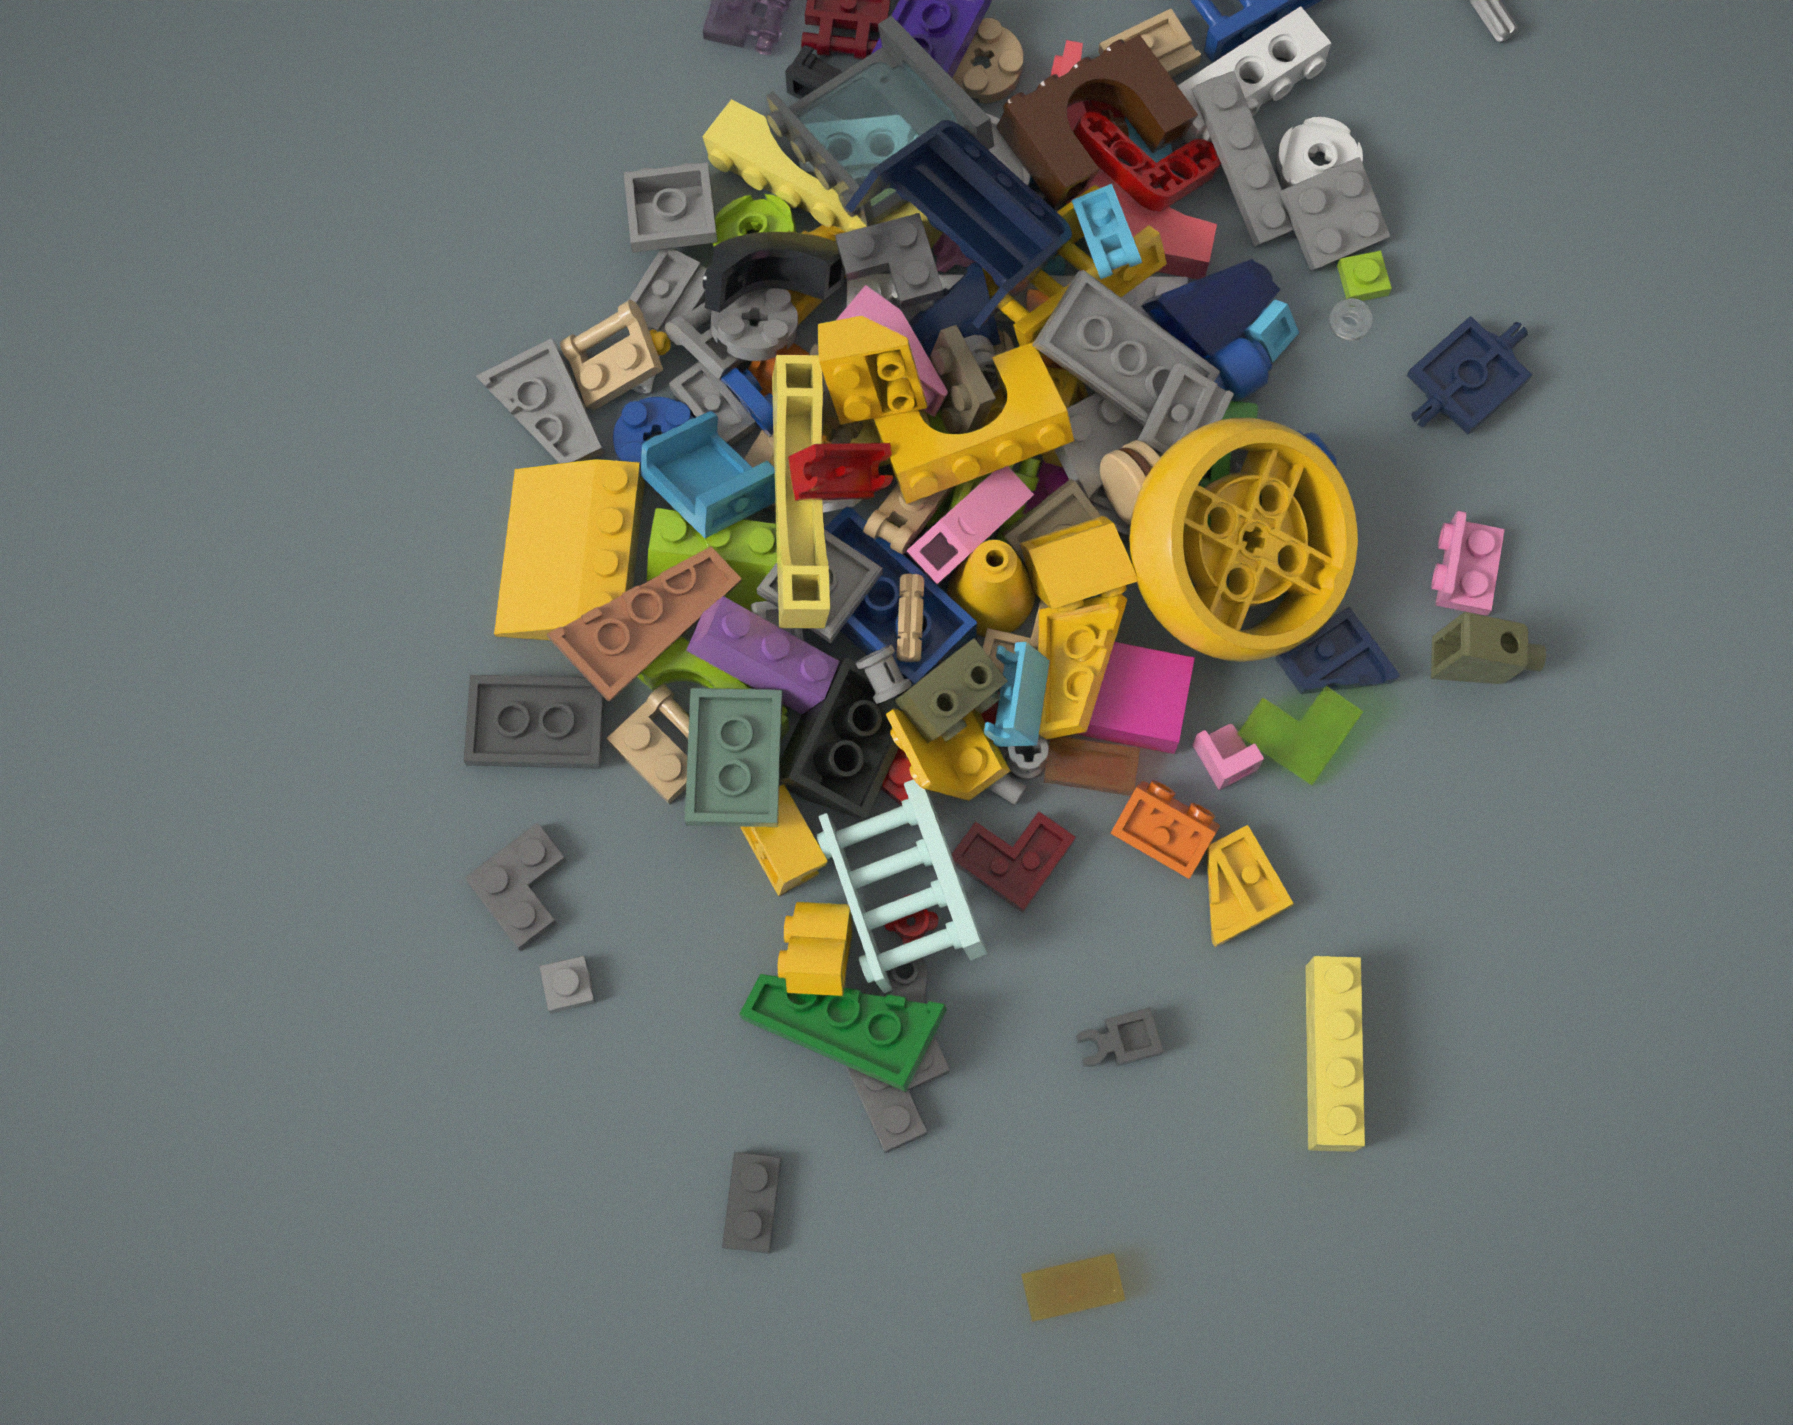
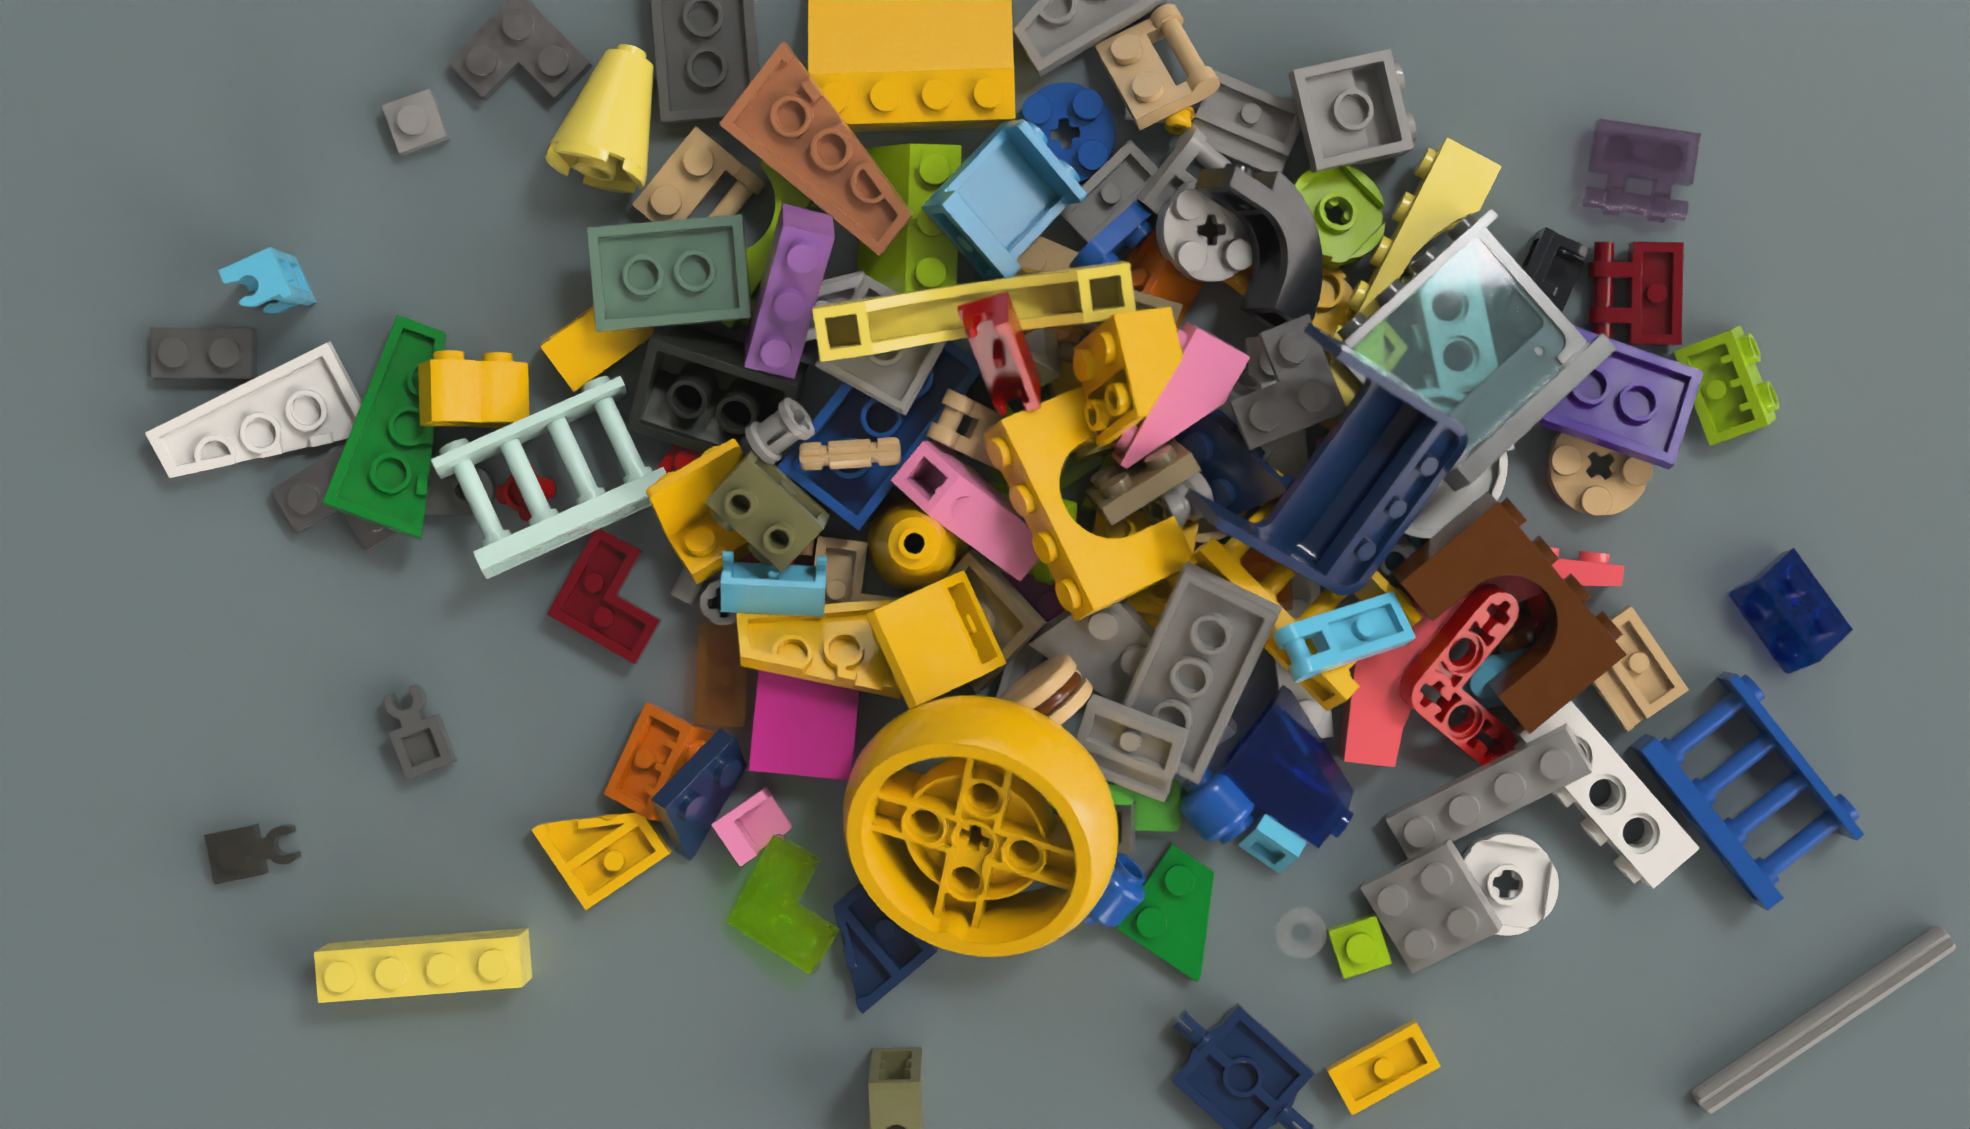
camera: 85 degrees right, 15 degrees up
(596, 806) = (609, 124): none -> light yellow cone
(692, 1113) = (271, 276): none -> medium azure hinge
(814, 1137) = (278, 412): none -> white wing
(1072, 1287) = (150, 703): clear yellow plate -> none
(1194, 791) = (698, 792): none -> dark blue wing
(1219, 1218) = (243, 851): none -> clear smoke plate
(1331, 413) = (1174, 911): none -> green wing
(1467, 265) = (1383, 1067): none -> yellow plate
(1469, 565) = (1007, 1084): bright pink bracket -> none

